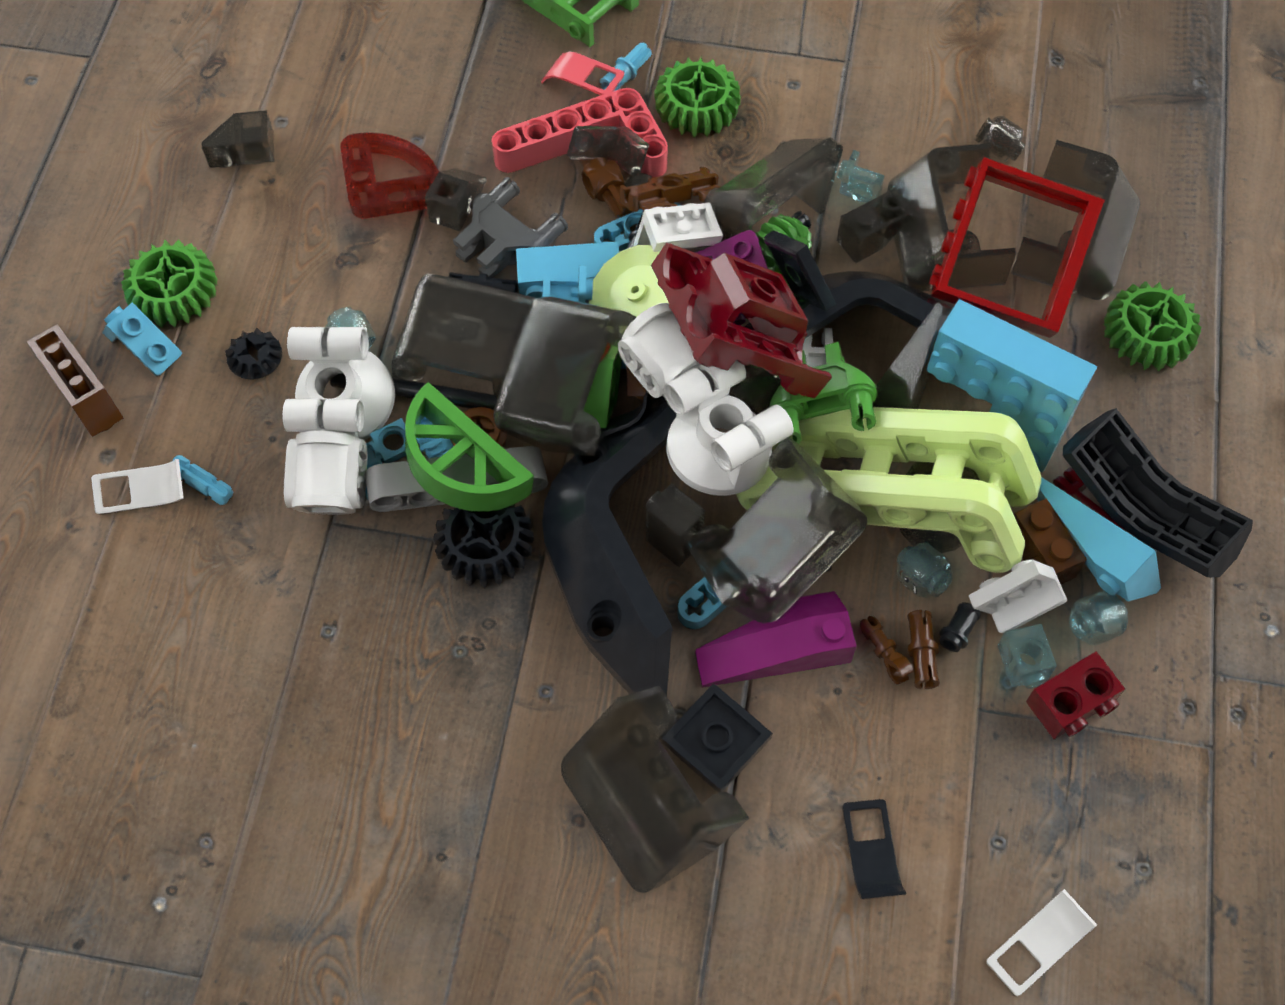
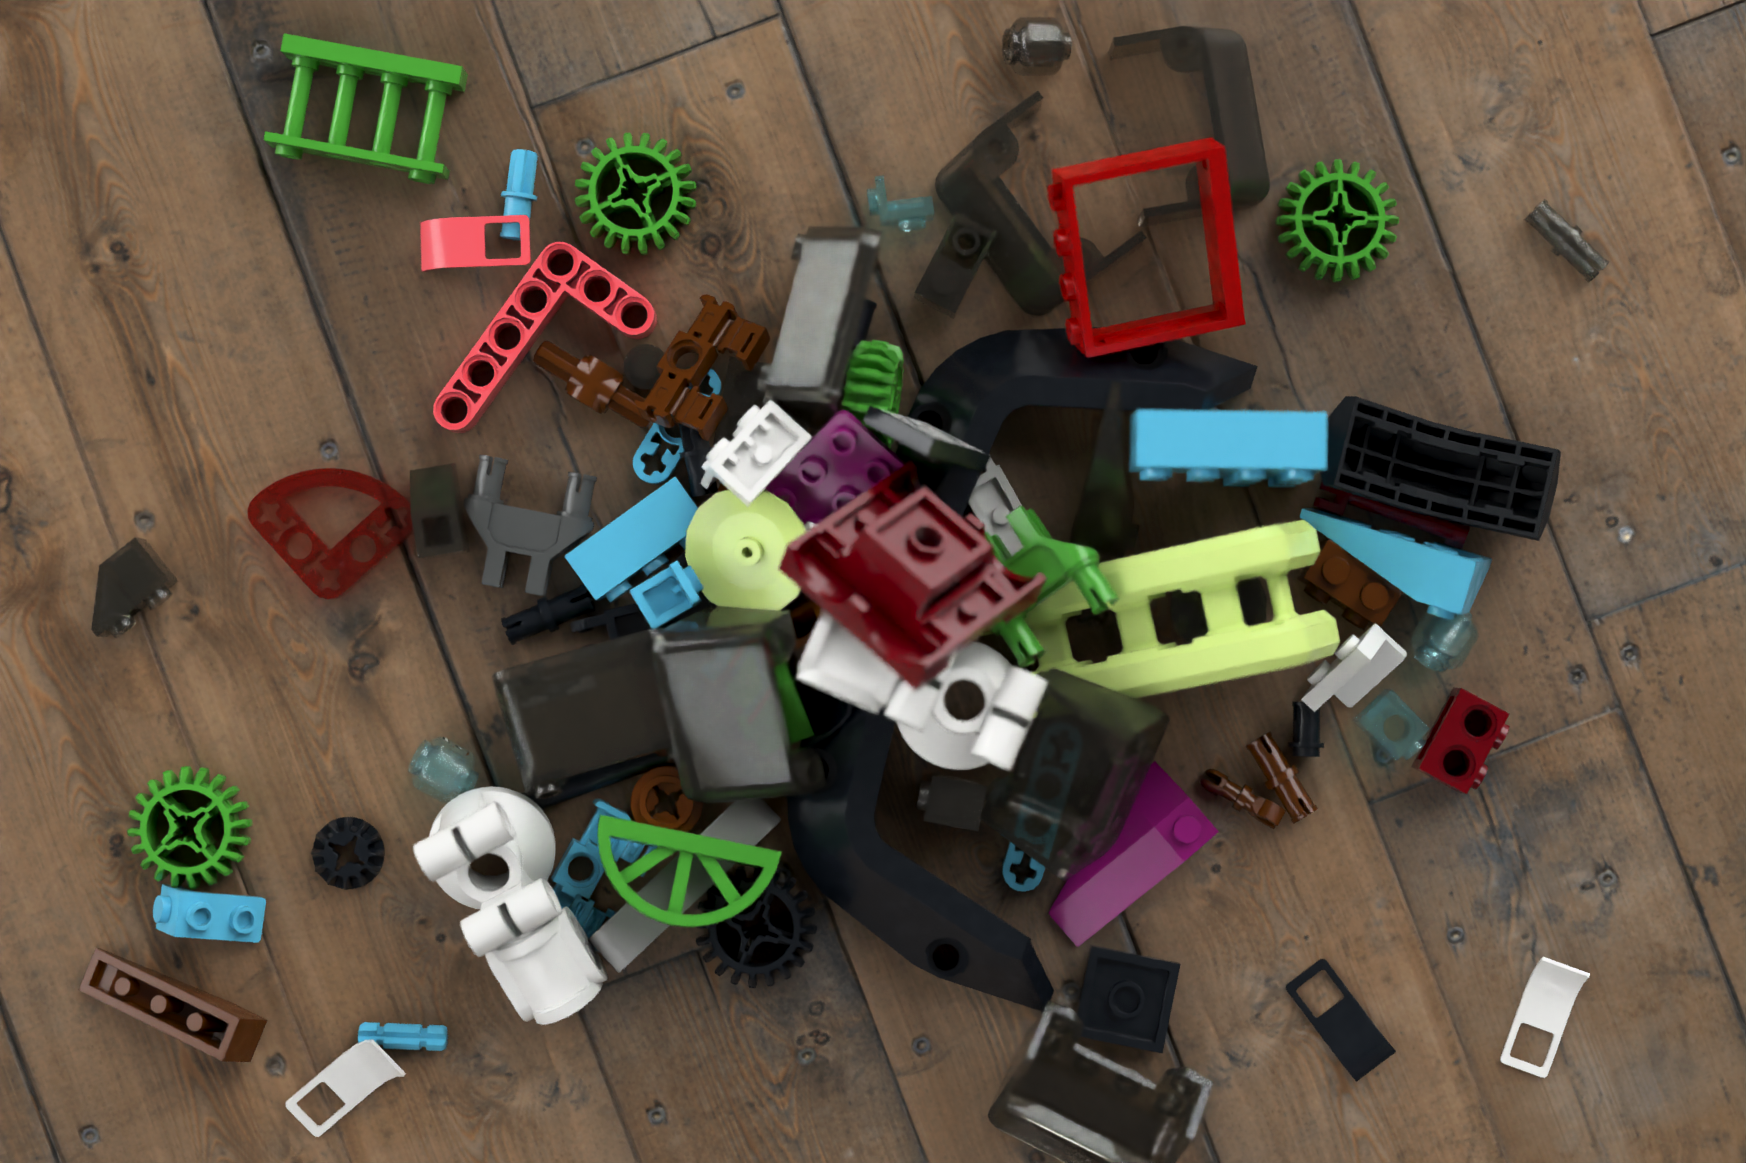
camera: 30 degrees left, 25 degrees up
(609, 142) = (591, 332): clear smoke bracket -> none
(924, 570) = (1240, 696): clear light blue head -> none

